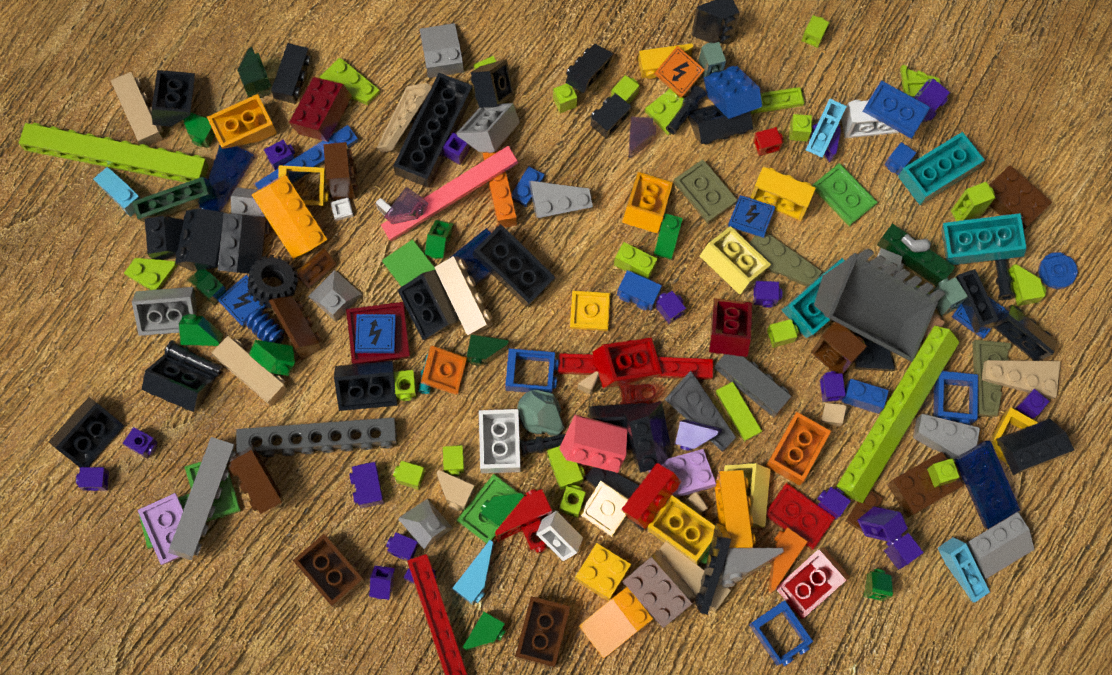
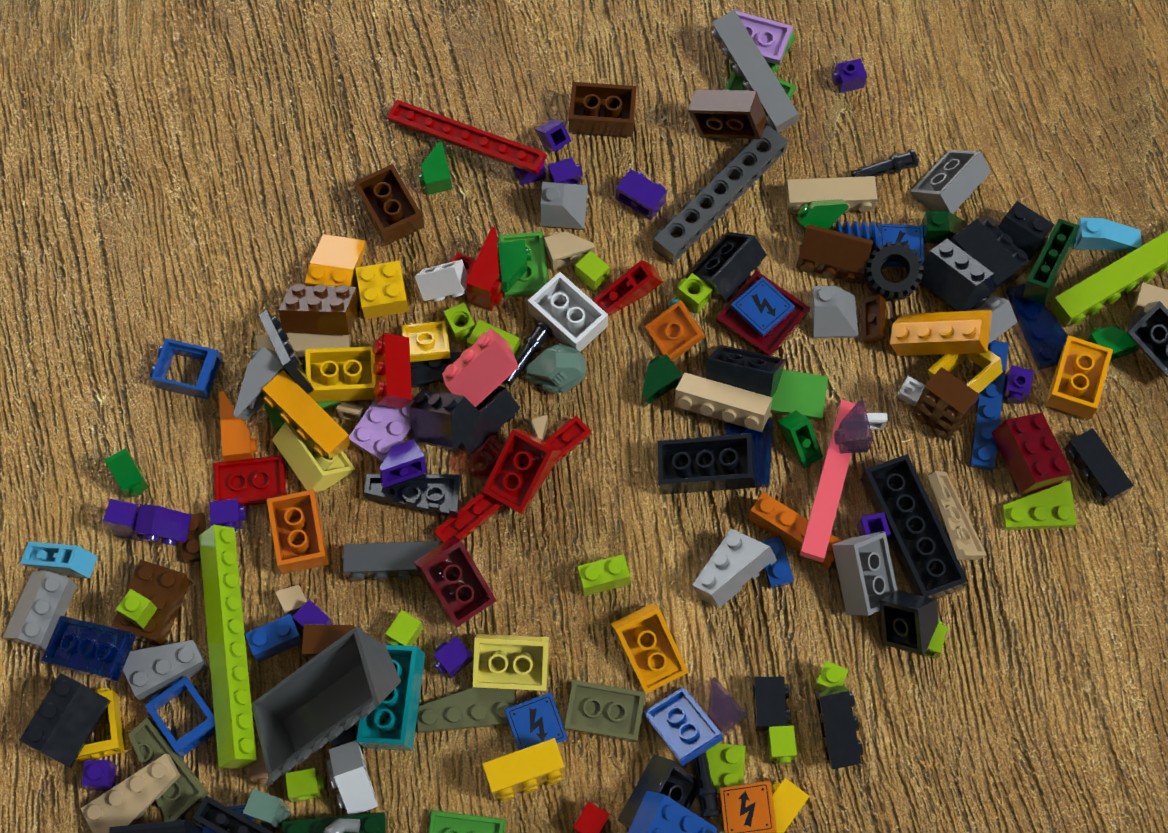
camera: 140 degrees right, 5 degrees down
(86, 433) = (898, 47): black slope -> none
(92, 479) = (853, 24): dark purple brick -> none
(150, 272) = (999, 198): lime wing -> none
(178, 383) = (874, 138): black slope -> none
(198, 331) = (904, 186): green slope -> none
(254, 75) = (1124, 427): clear green slope -> none
(409, 475) = (615, 229): lime brick -> none
(441, 50) = (998, 621): light grey slope -> none
(444, 426) = (629, 288): none -> red slope
(474, 579) = (482, 200): medium azure slope -> none
(514, 354) = (617, 380): blue window -> none
(590, 310) = (602, 498): yellow tile -> none
(638, 291) = (574, 551): blue brick -> none
(668, 236) = (597, 630): green slope -> none
(670, 306) = (532, 563): dark purple brick -> none
(671, 142) = (683, 726): none -> tile
(738, 411) = (382, 525): lime tile -> none
(812, 582) = (190, 434): red slope -> none

